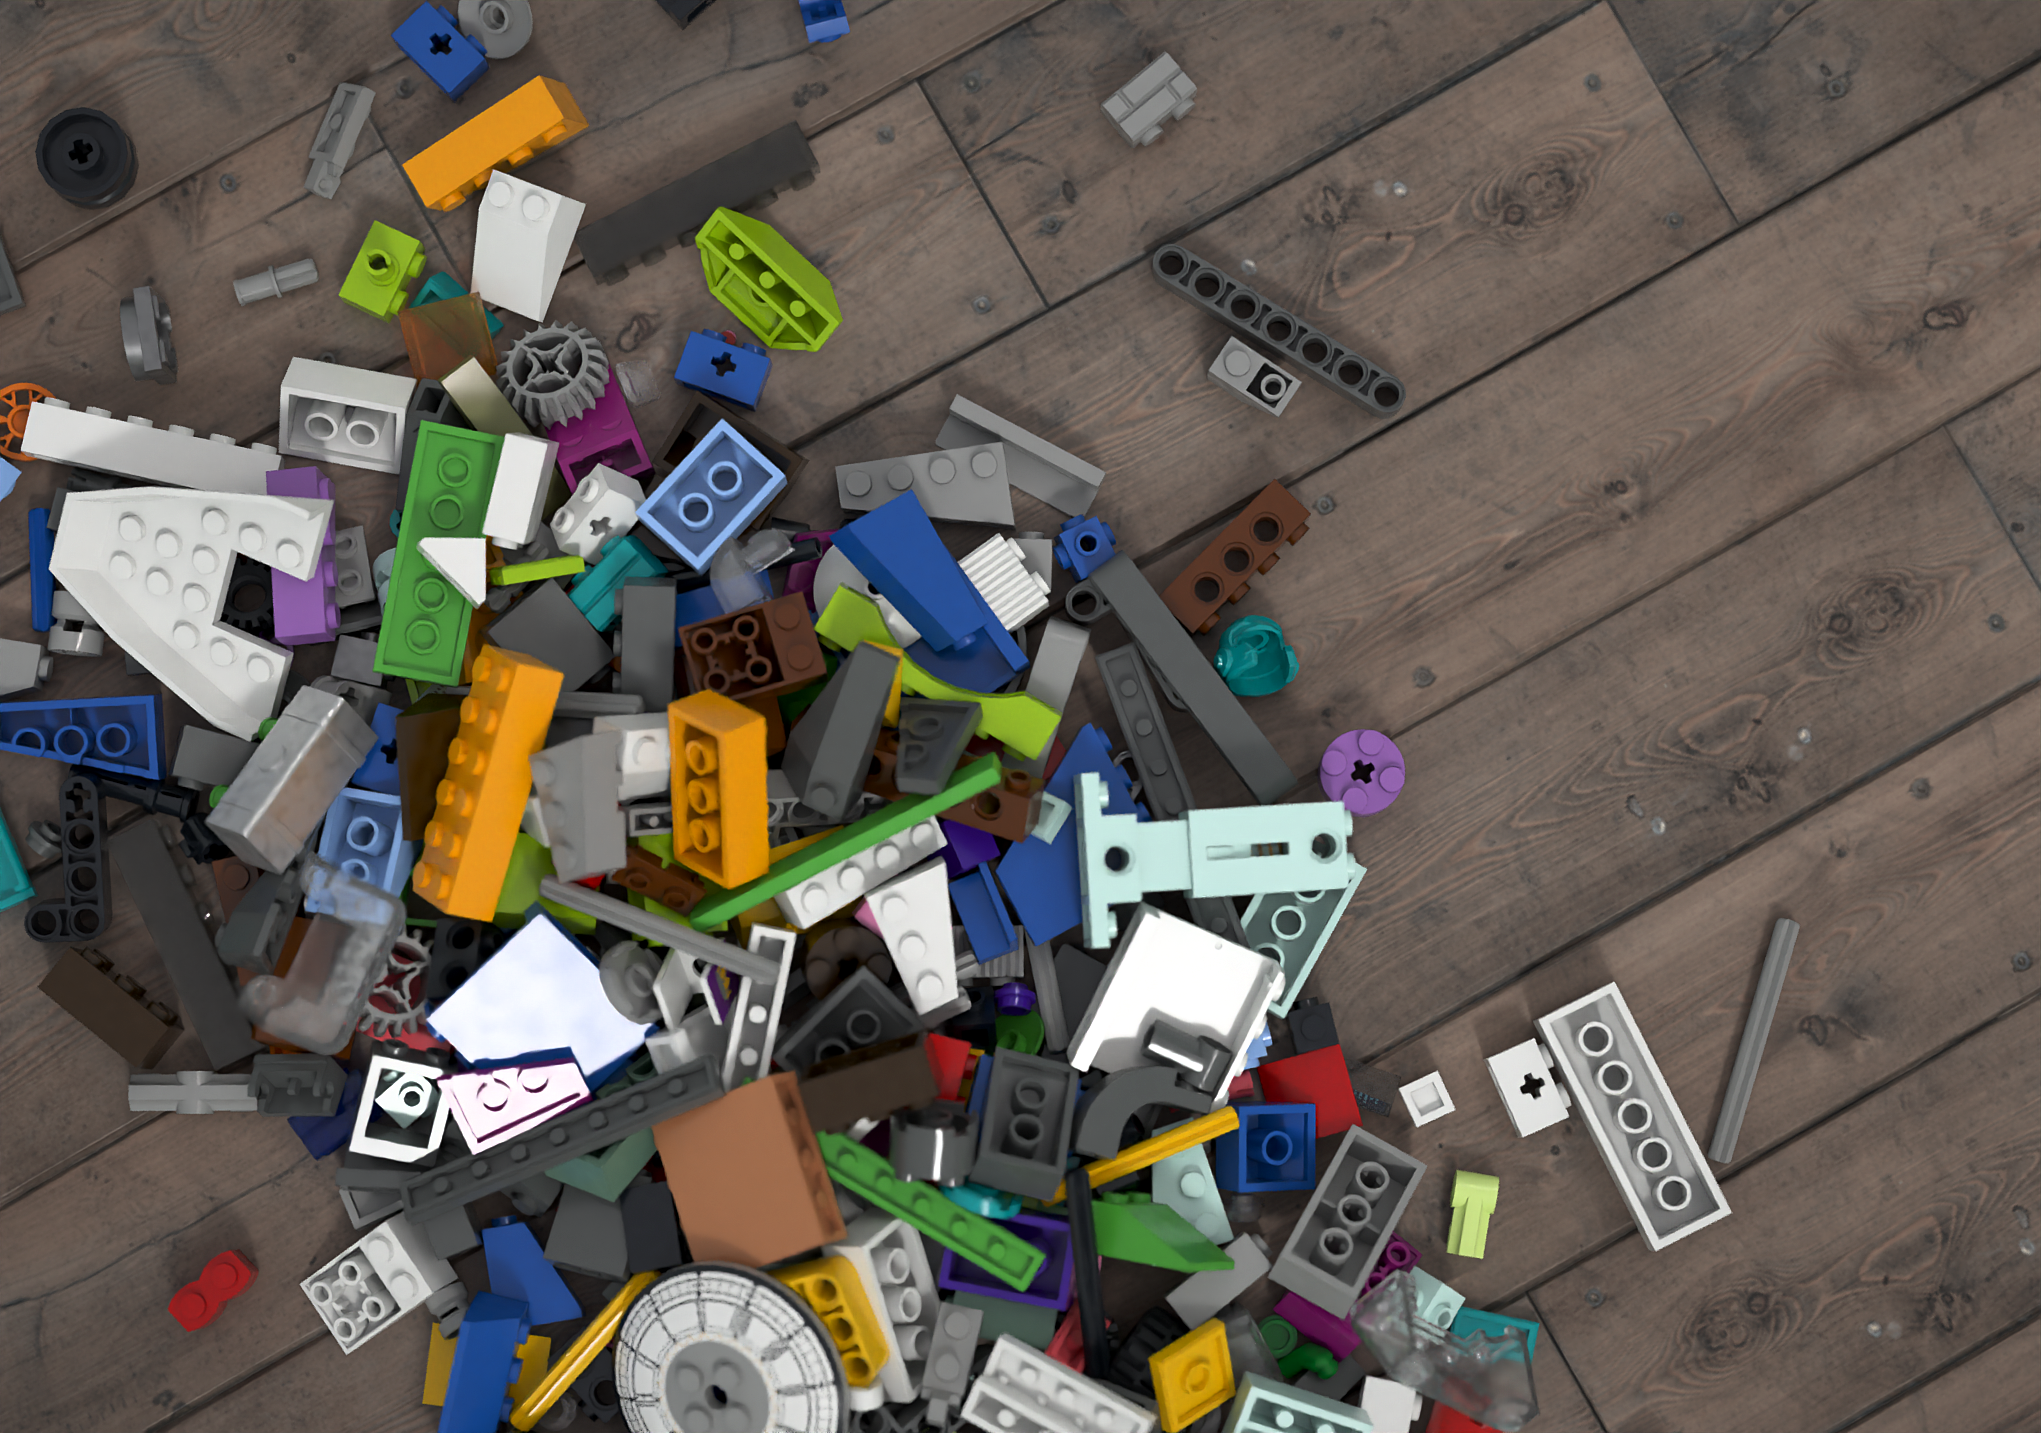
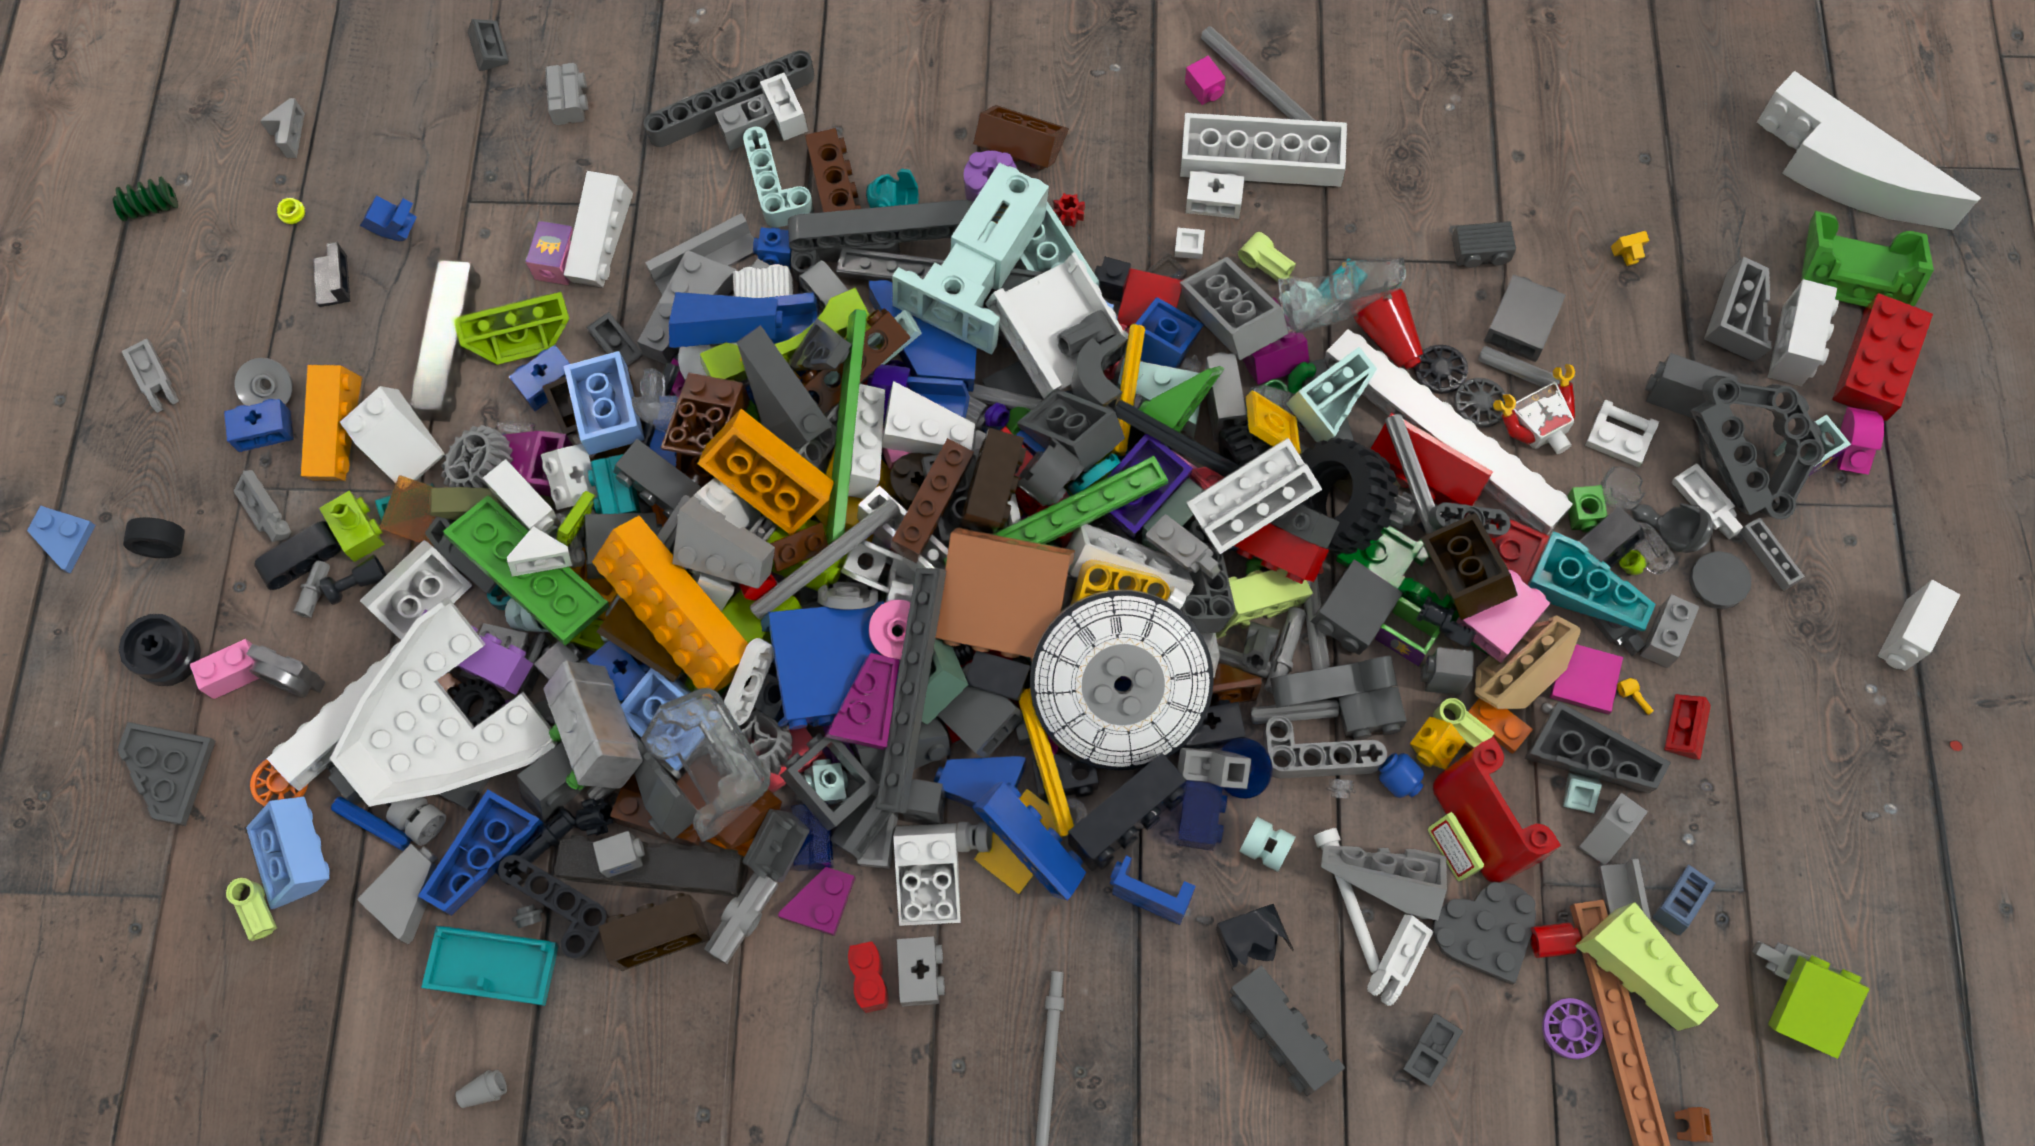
camera: 55 degrees left, 15 degrees down
(114, 258) = (224, 670): none -> bright pink brick
(171, 907) = (618, 854): none -> light grey brick
(215, 42) = (154, 537): none -> black tyre
(231, 1350) = (912, 989): none -> light grey brick
(270, 1173) = (820, 901): none -> magenta wing
(304, 231) = (297, 555): none -> black beam
(331, 334) = (364, 574): none -> black piece
(451, 936) = (754, 663): none -> white beam
(609, 1057) = (880, 627): none -> bright pink dish
(805, 1019) = (931, 500): none -> reddish brown brick
(832, 422) = (613, 338): none -> dark grey slope
(902, 258) = (549, 252): none -> piece
(969, 294) = (597, 228): none -> white wedge
(1193, 468) = (767, 176): none -> light aqua beam
(1304, 418) = (785, 106): none -> white brick
(1390, 894) = (1069, 209): none -> red gear
(1461, 767) = (1020, 136): none -> reddish brown slope
(1701, 971) = (1205, 80): none -> dark pink brick

